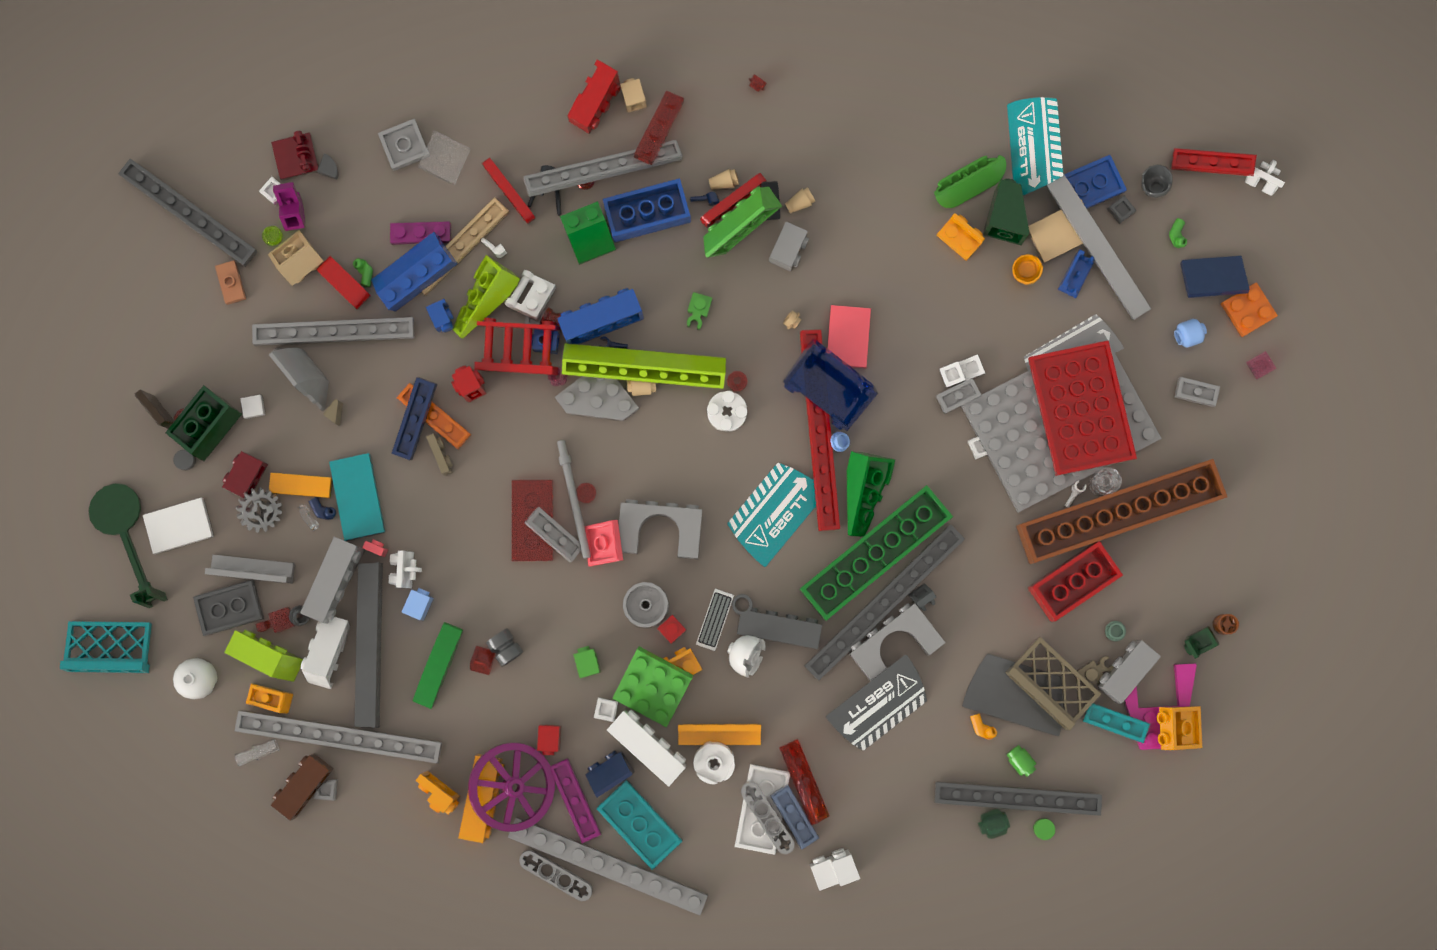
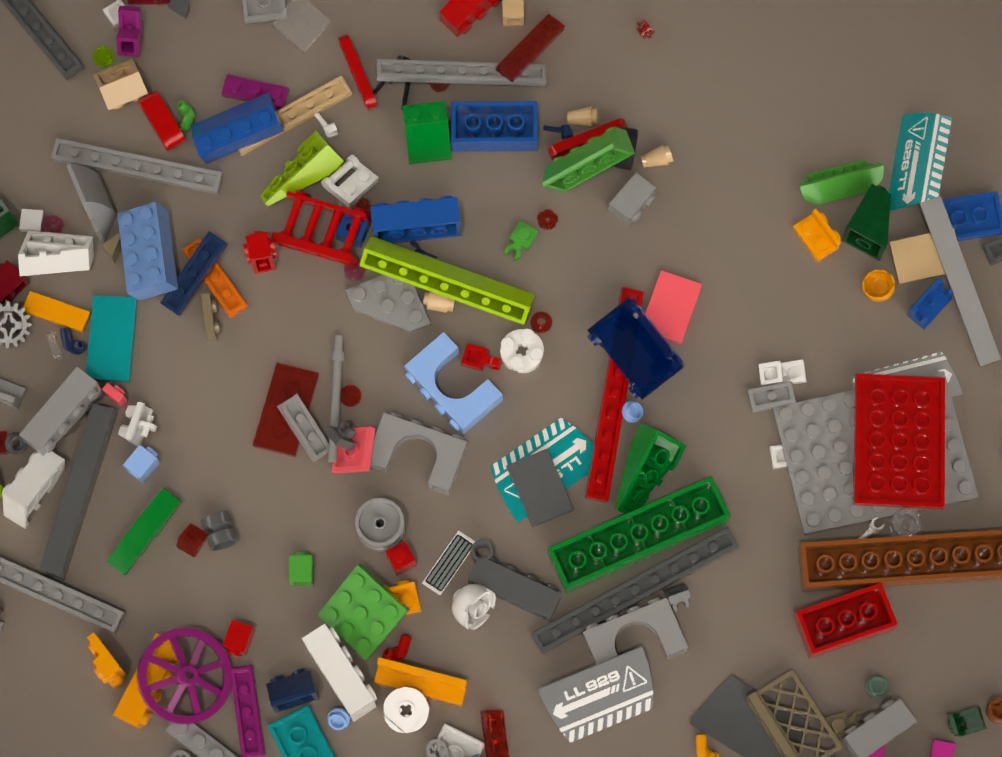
camera: 15 degrees right, 10 degrees down
(230, 282) = (46, 92): nougat plate -> none
(267, 406) = (49, 220): none -> clear pink plate
(282, 433) = (54, 253): none -> white wedge
(366, 409) = (147, 251): none -> medium blue brick
(441, 316) = (251, 178): blue brick -> none
(588, 535) = (342, 435): none -> dark grey tile
(606, 709) = (306, 623): white tile -> none
(645, 454) = (463, 411): none -> light blue arch
(656, 786) = (338, 718): none -> light blue plate
(688, 429) = (477, 357): none -> red plate
(693, 711) = (400, 651): none -> red arm
(717, 289) = (547, 225): none -> clear red plate
(776, 532) = (539, 488): none -> dark grey tile
(792, 320) = (616, 275): tan plate -> none

